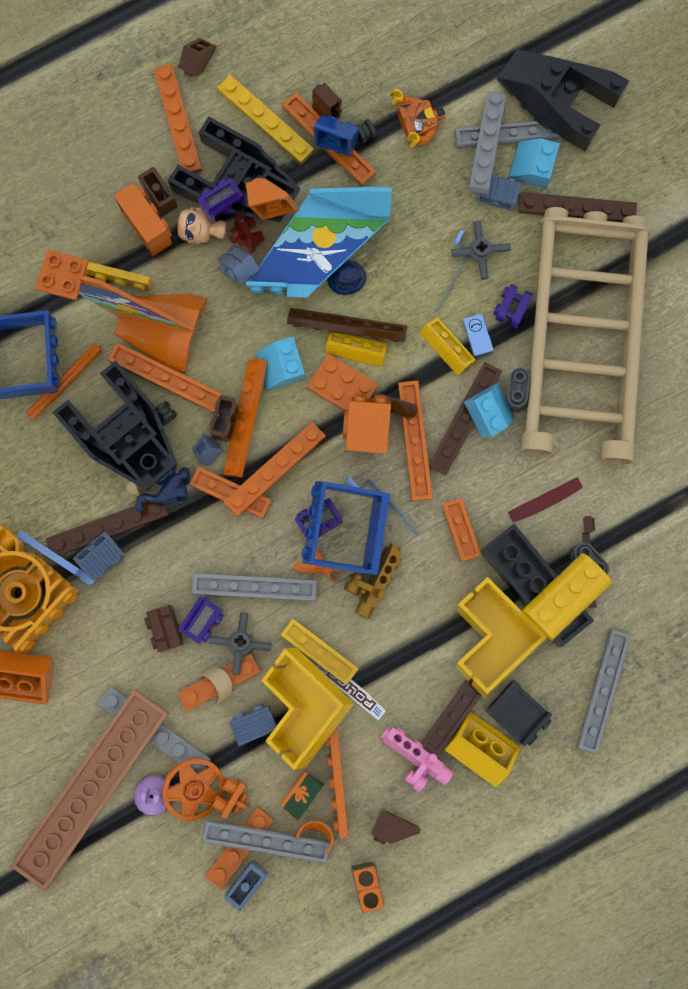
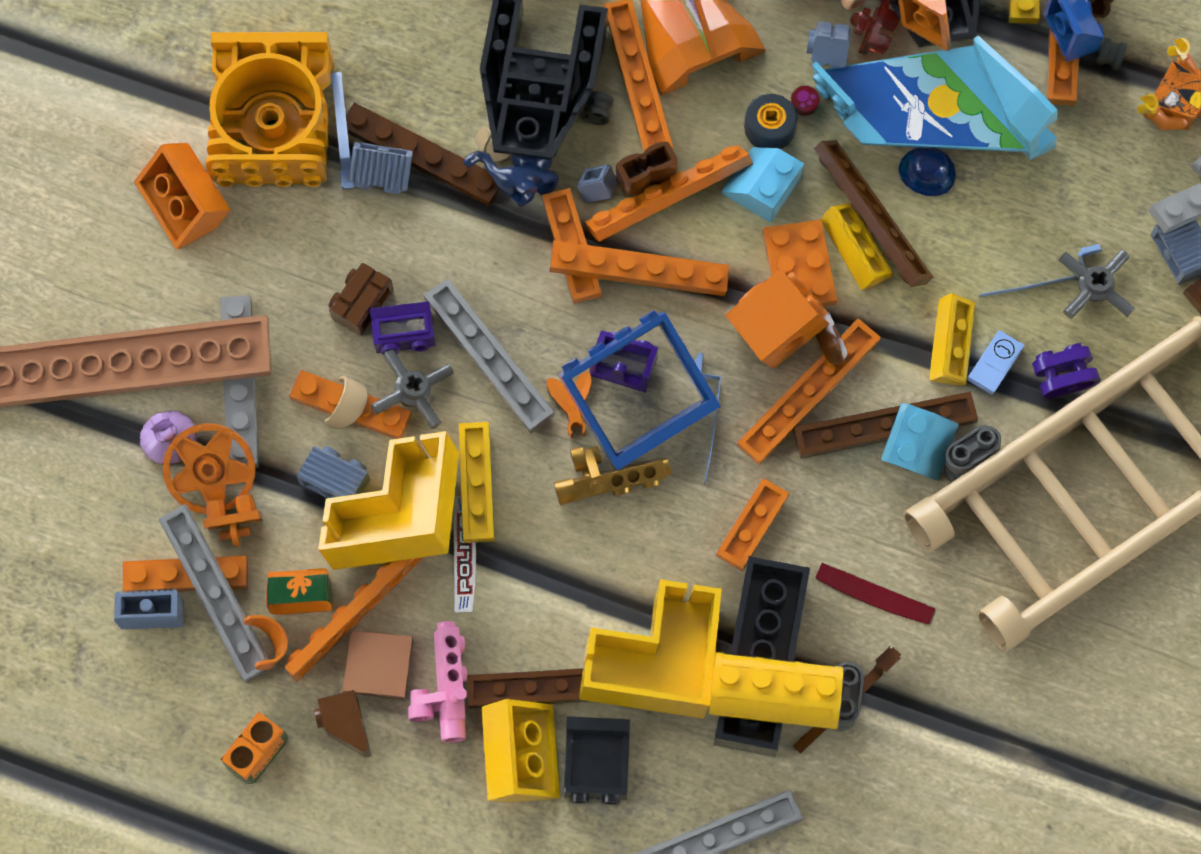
camera: 55 degrees right, 10 degrees down
(252, 339) = (770, 132): none -> black wheel
(254, 304) = (805, 100): none -> dark red tile
(374, 784) = (378, 664): none -> nougat tile

